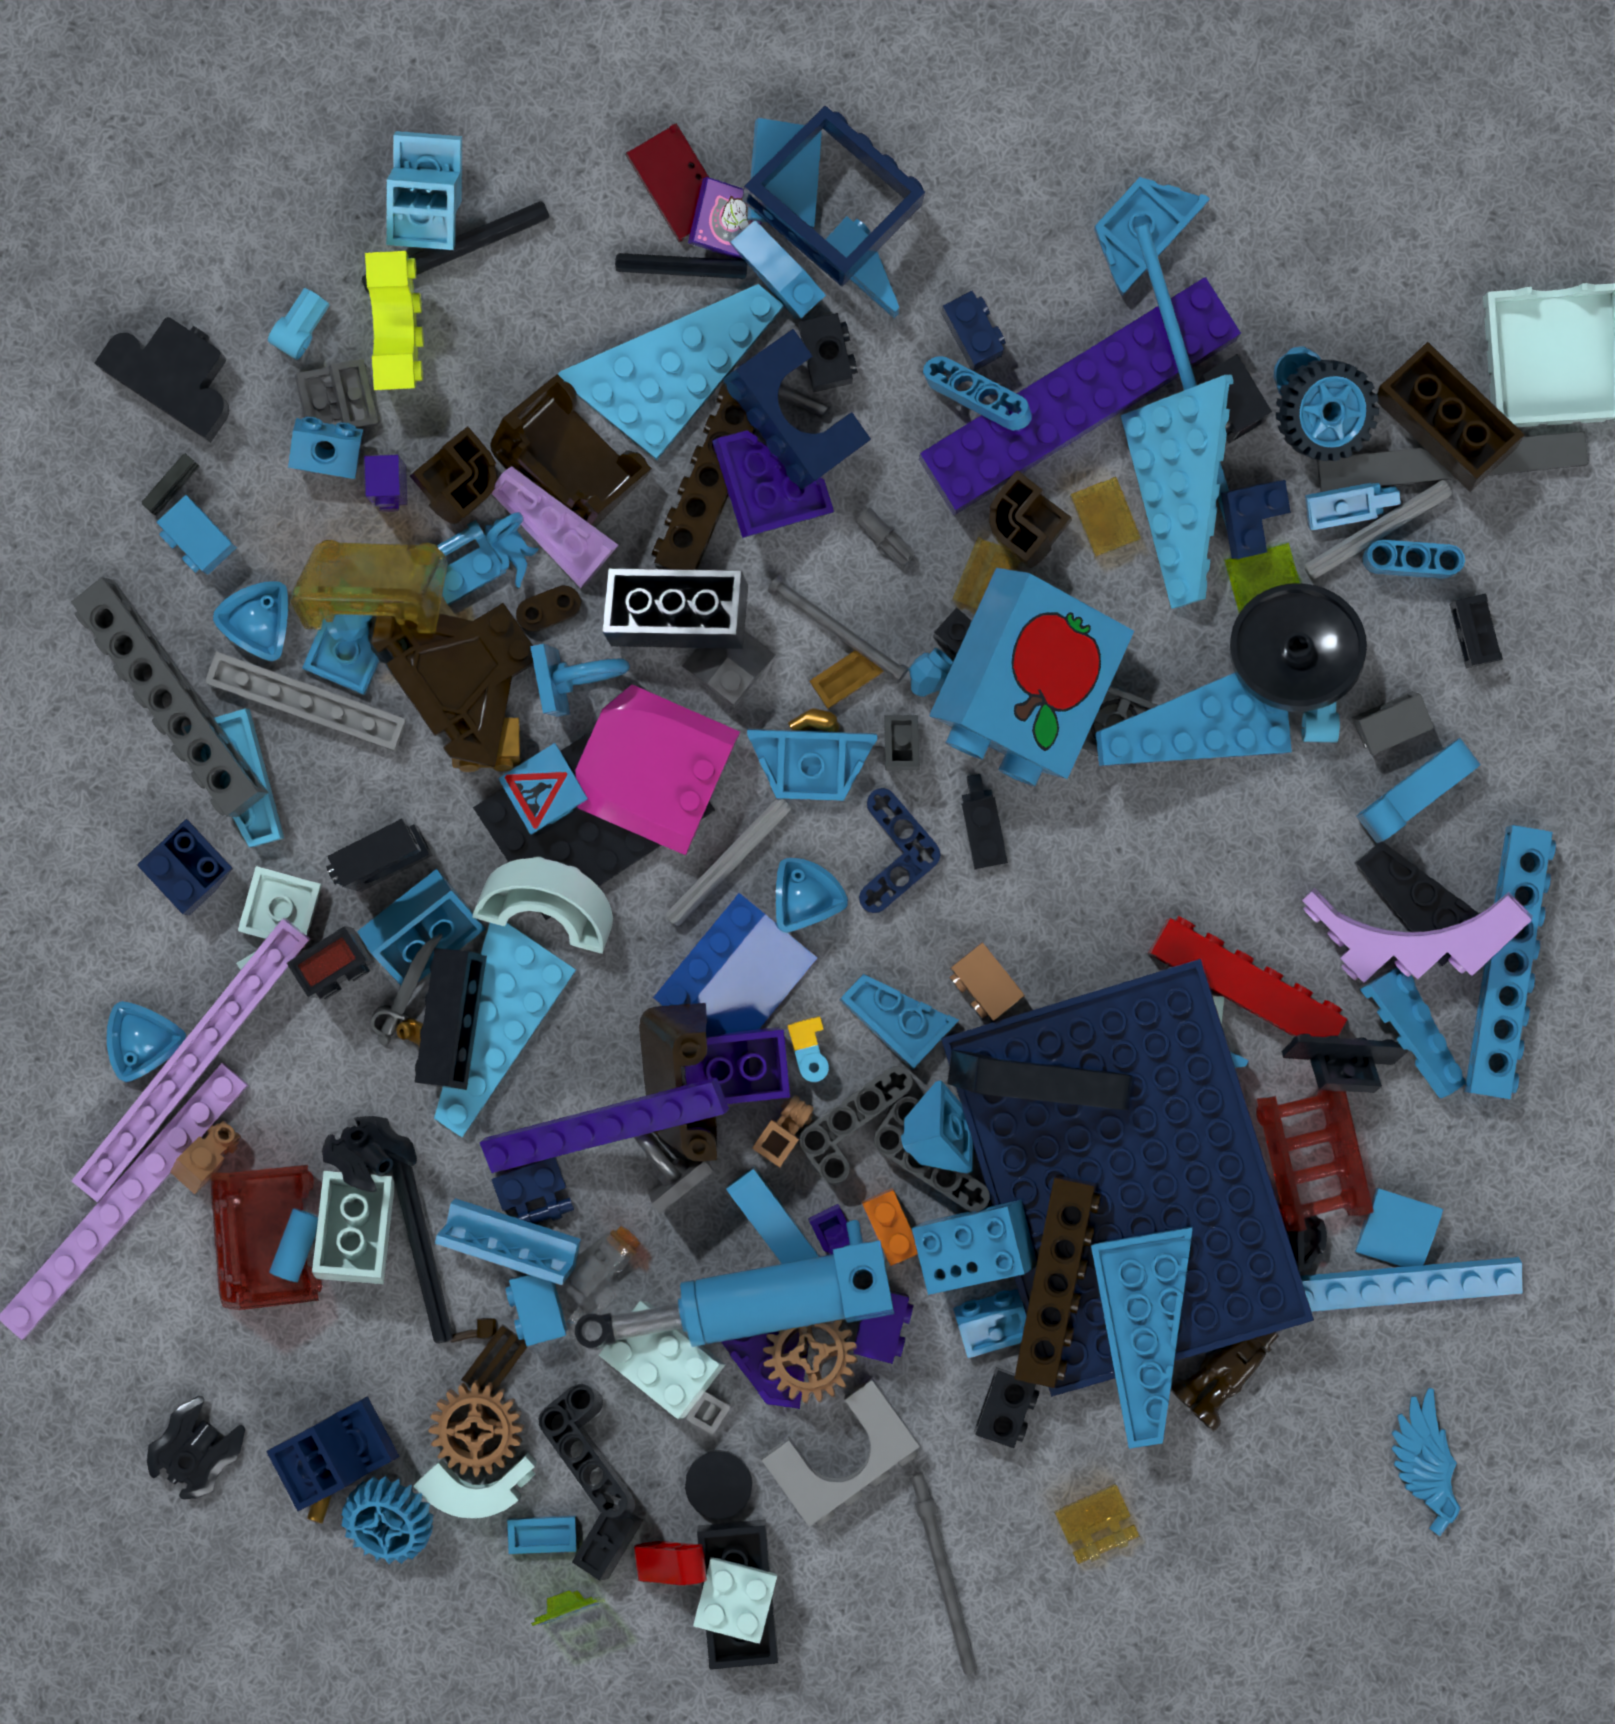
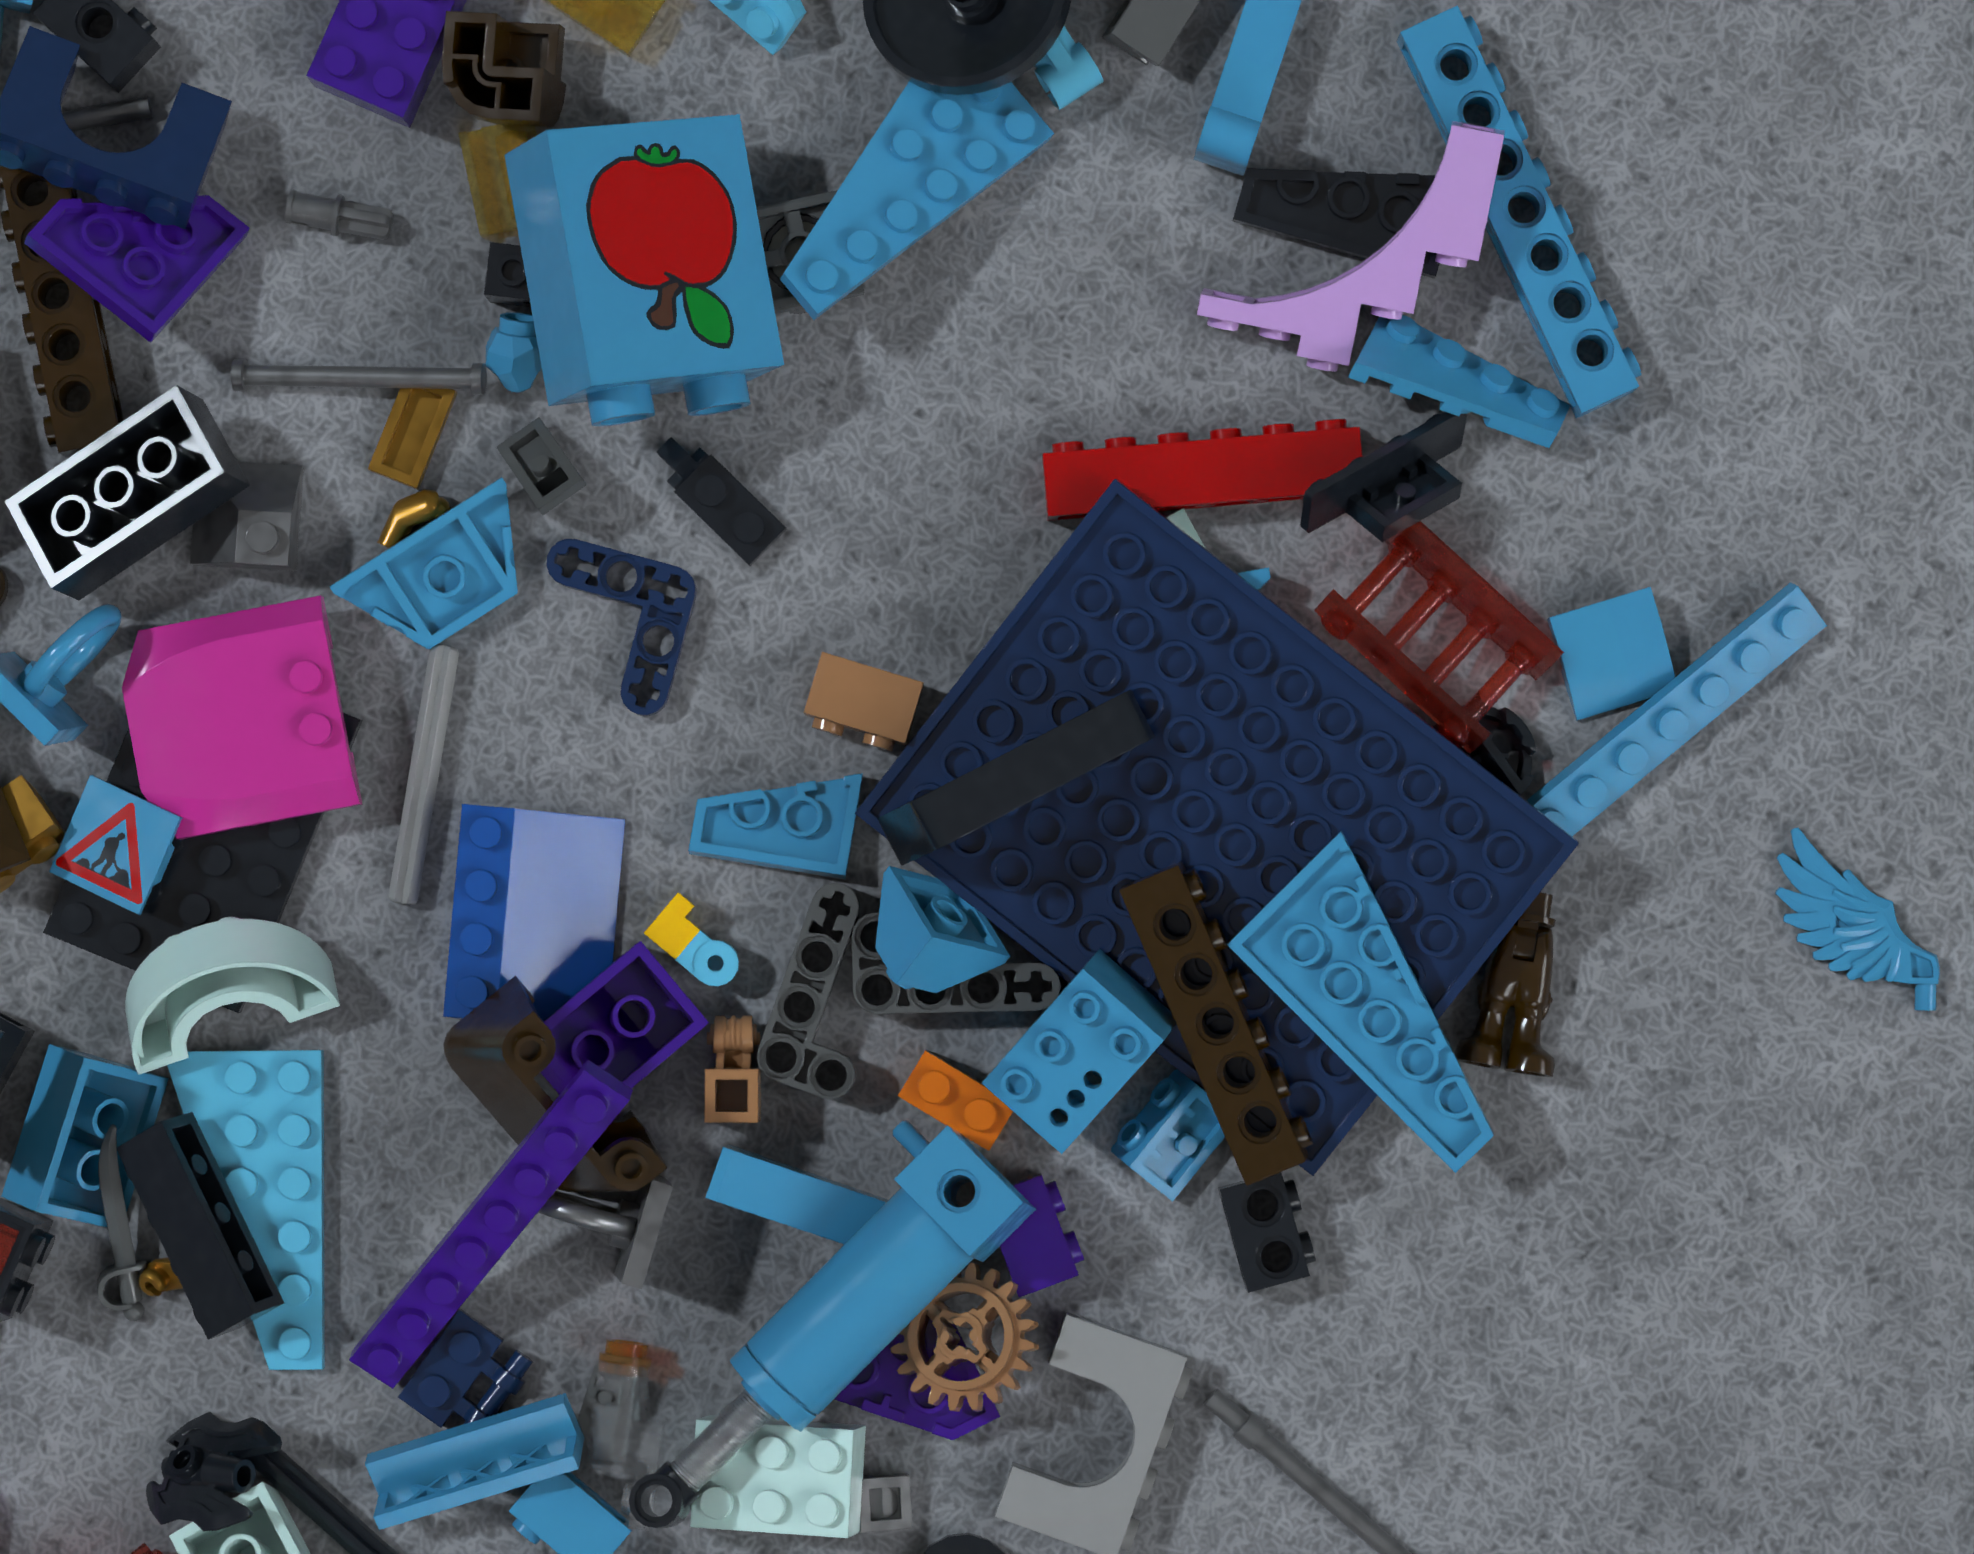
camera: 35 degrees left, 0 degrees up
(806, 894) = (552, 747): dark azure hat -> none
(830, 1228) = (878, 1156): dark purple slope -> none
(1092, 1515) = (1471, 1292): clear yellow plate -> none

